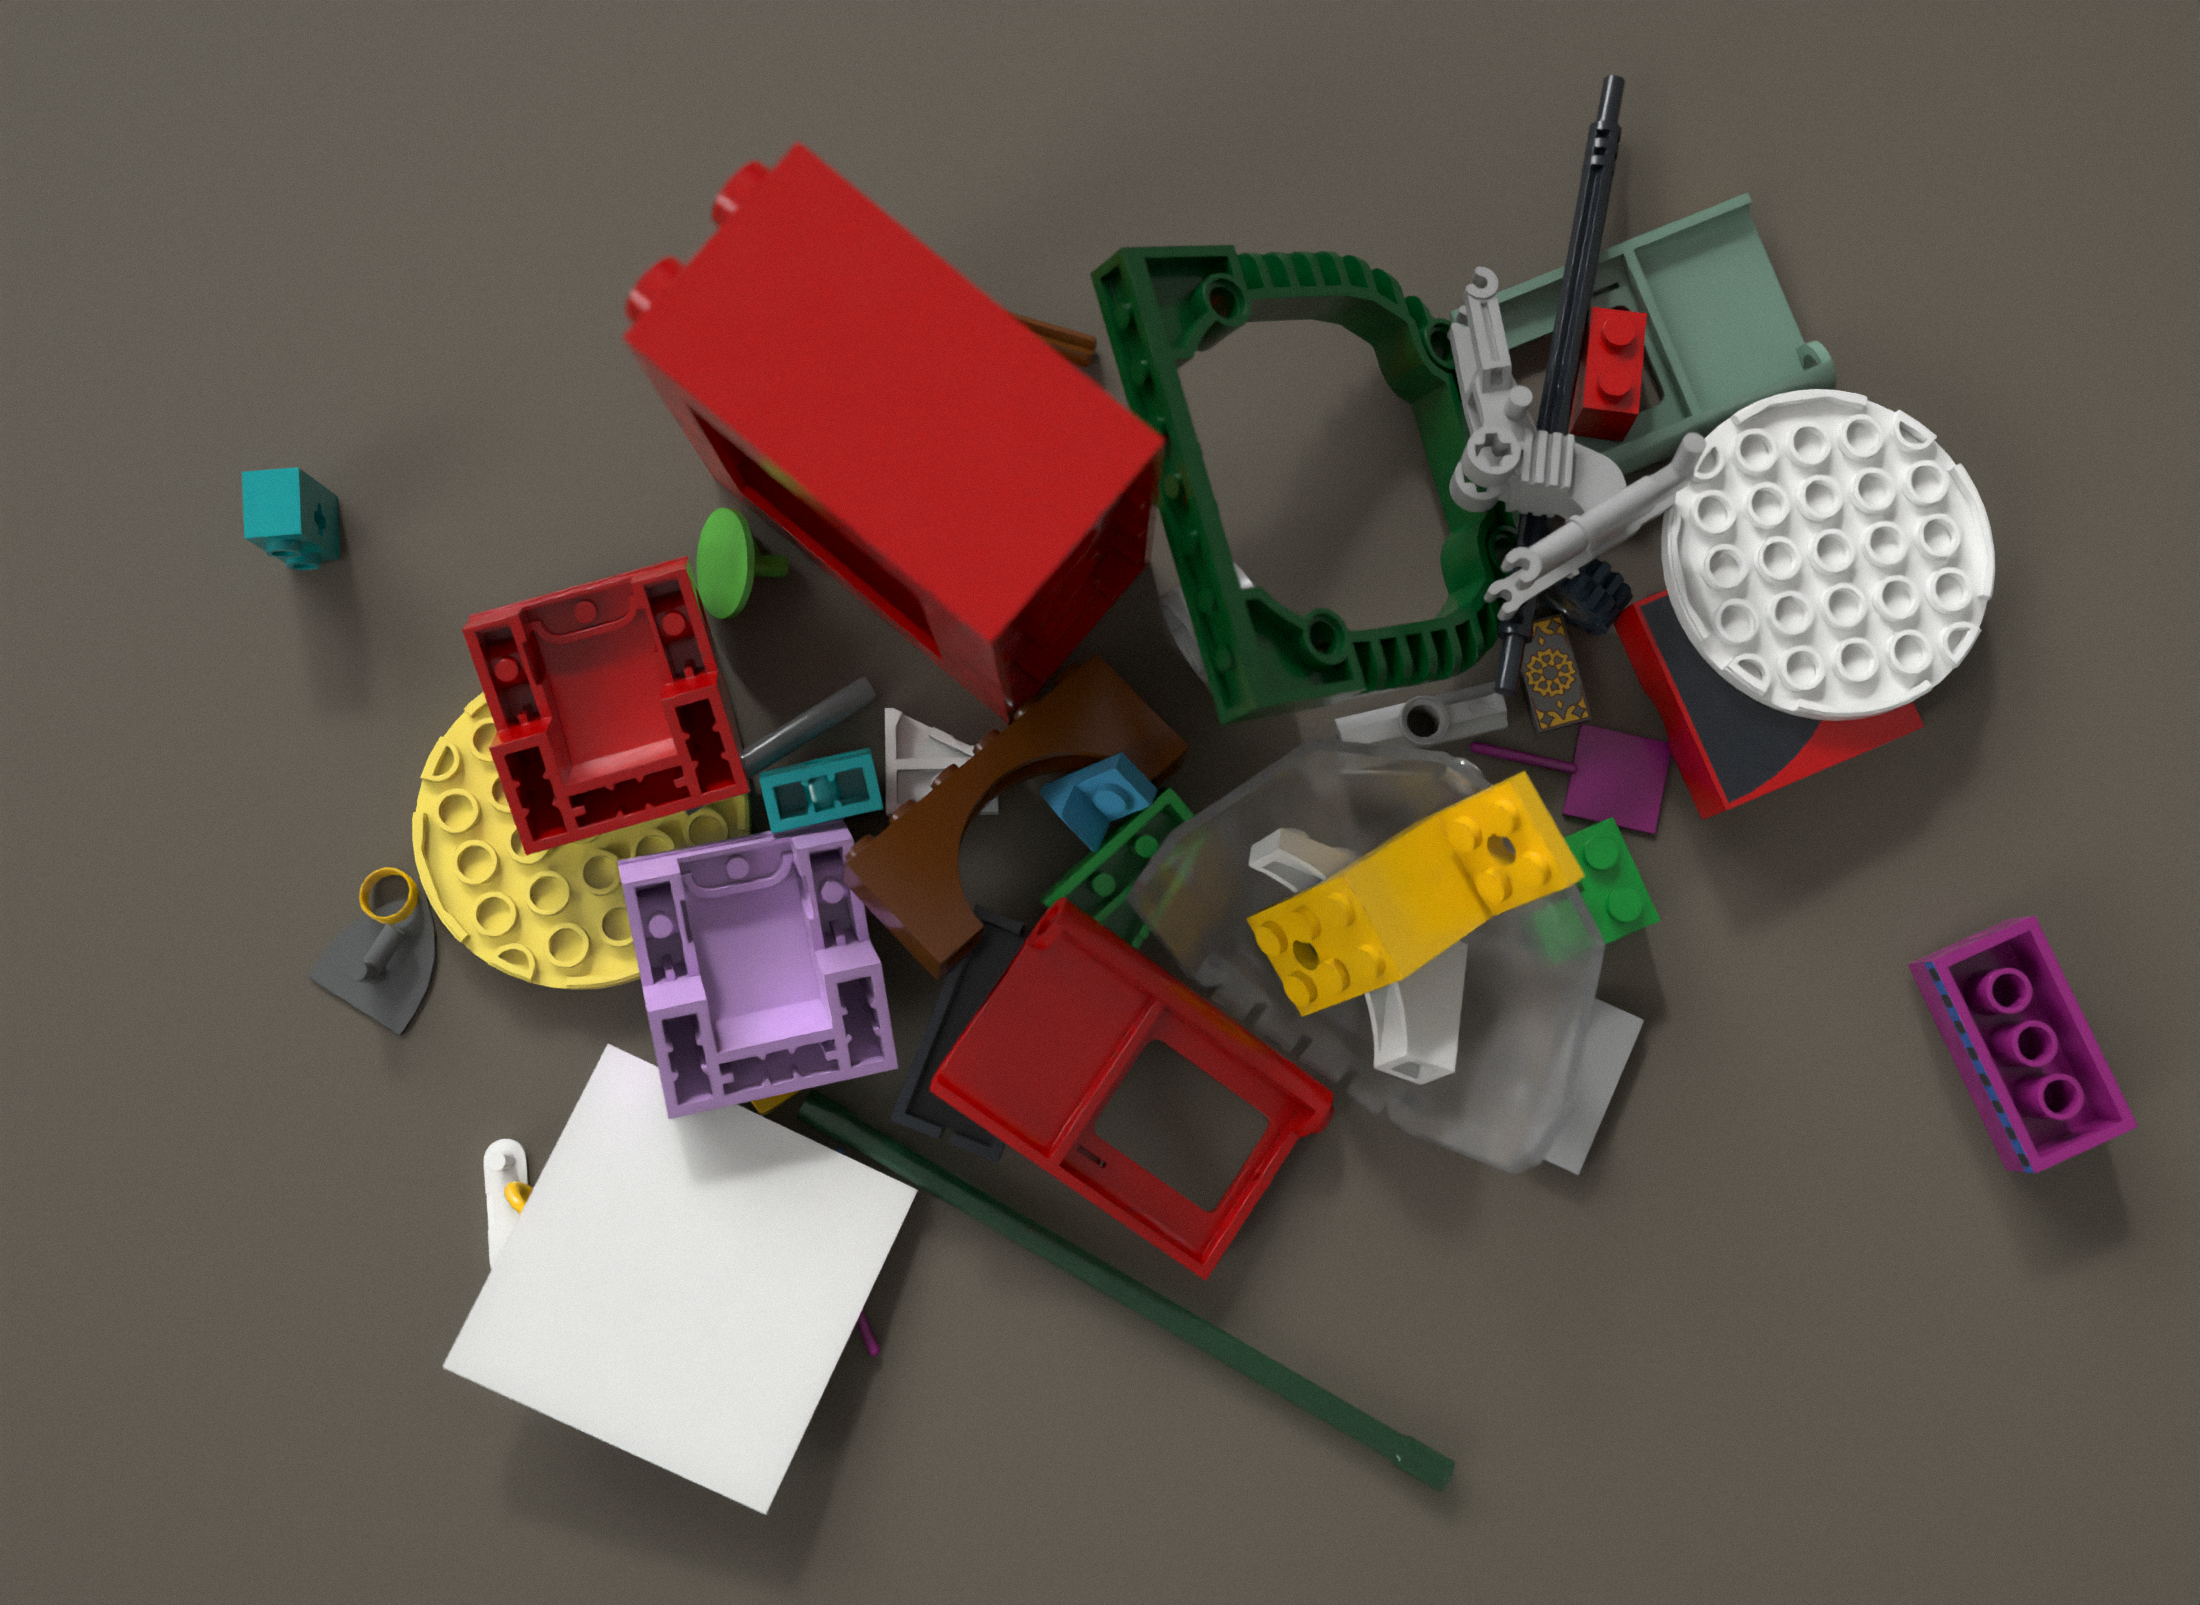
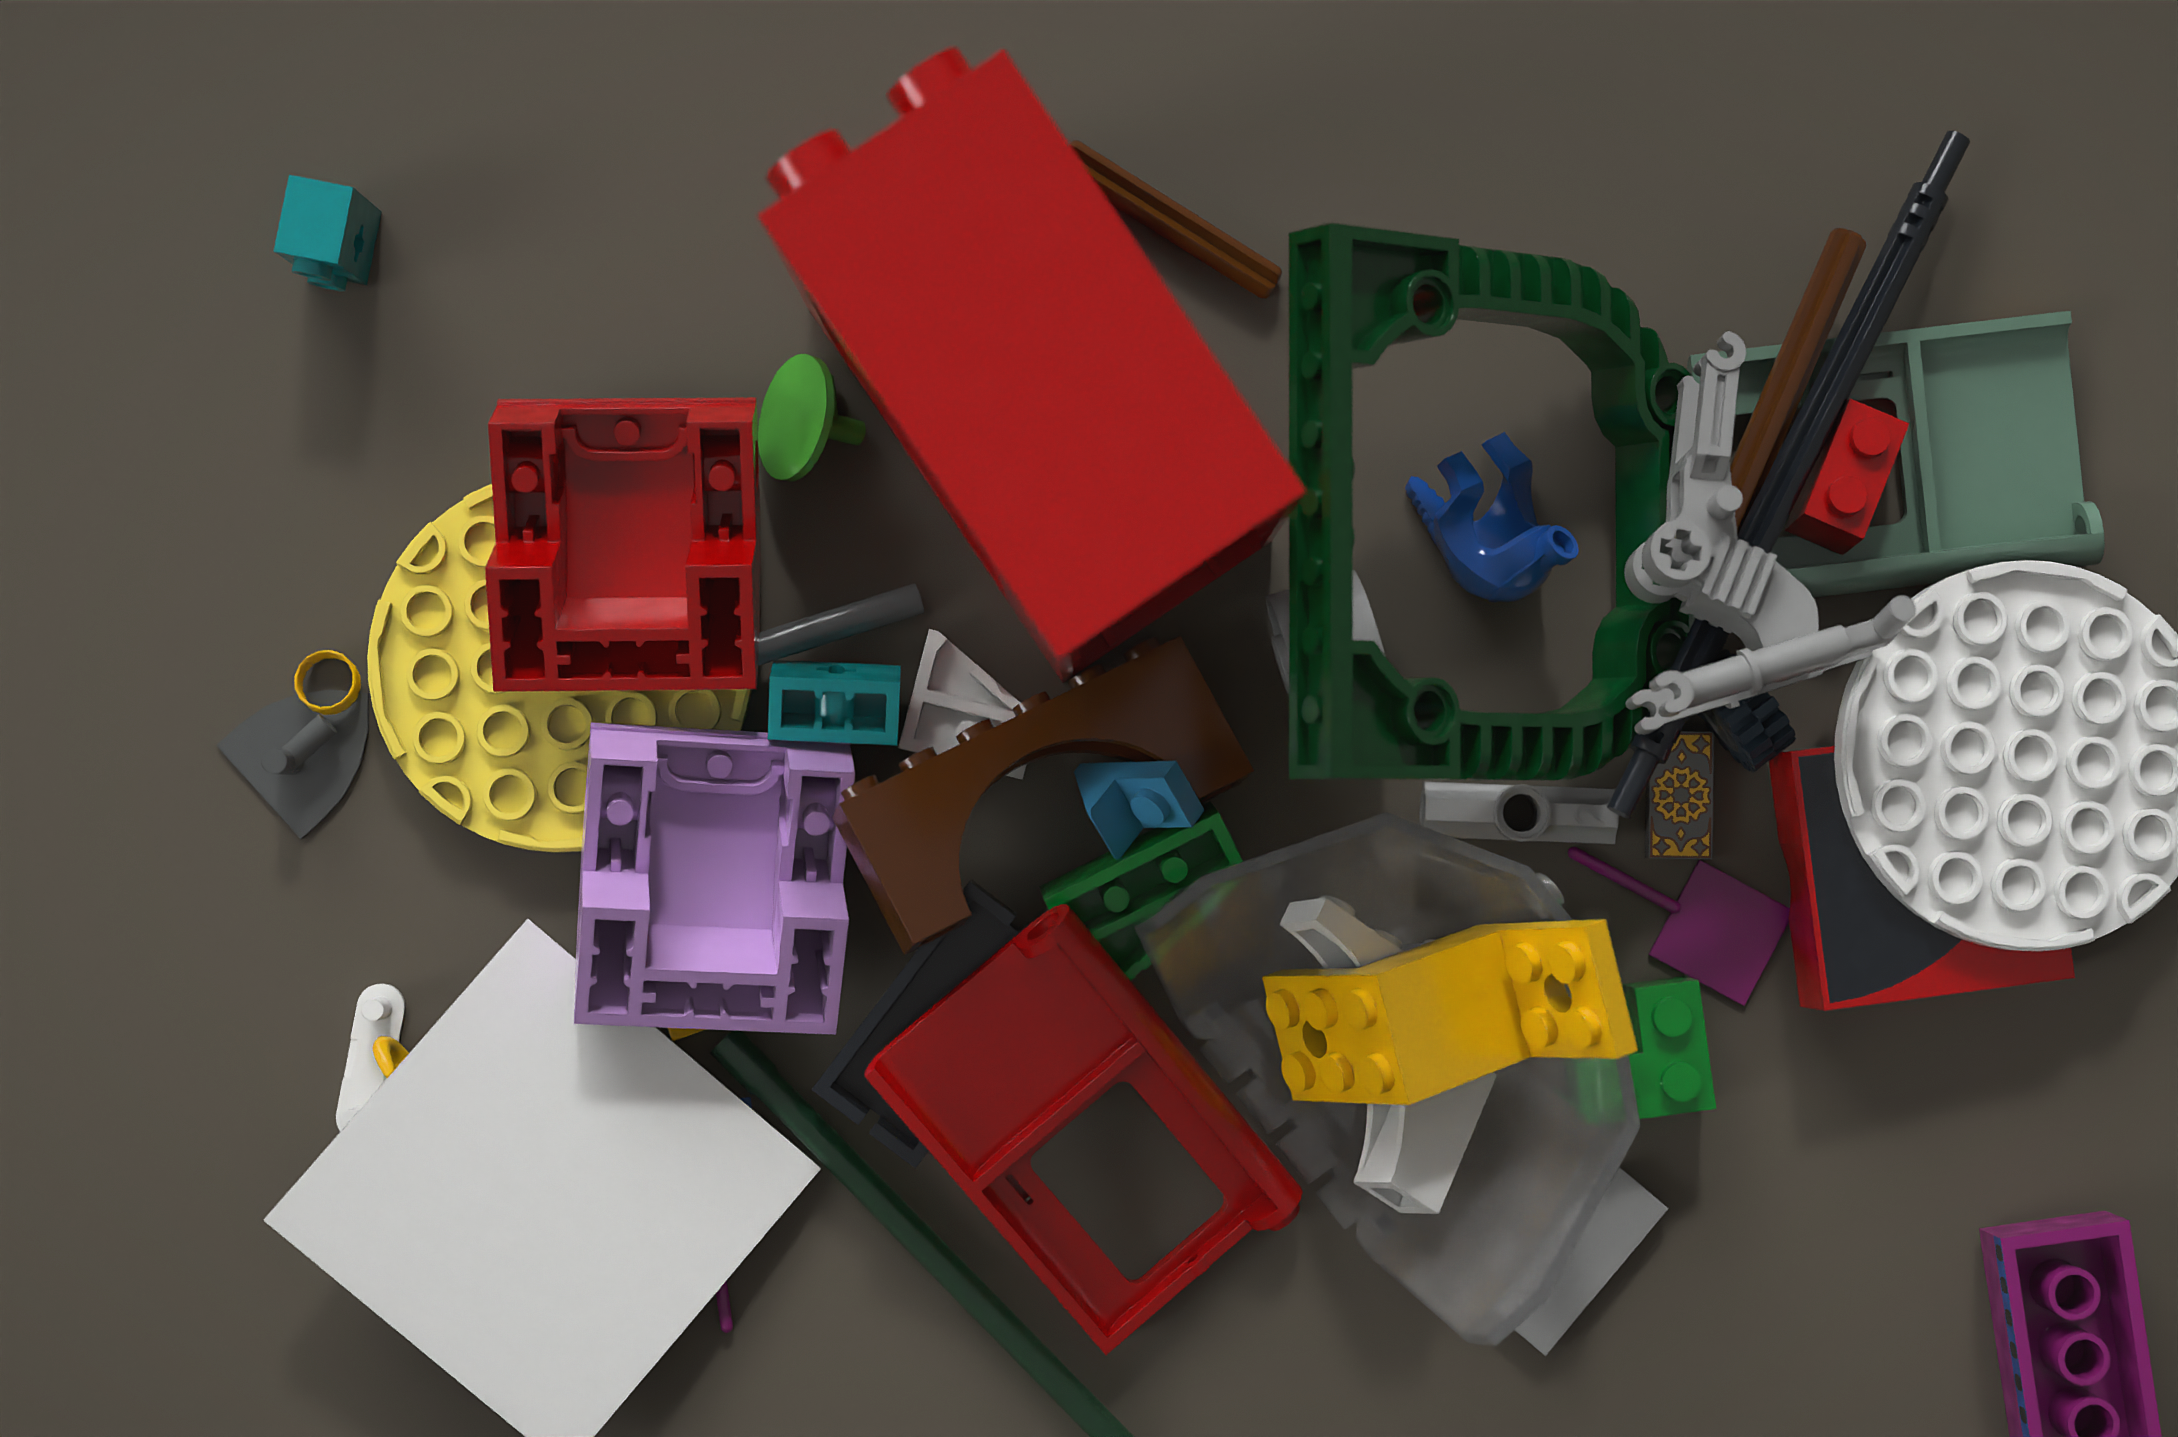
camera: 15 degrees right, 5 degrees up
(1346, 511) = (1506, 549): none -> blue piece
(1539, 286) = (1794, 365): none -> reddish brown axle

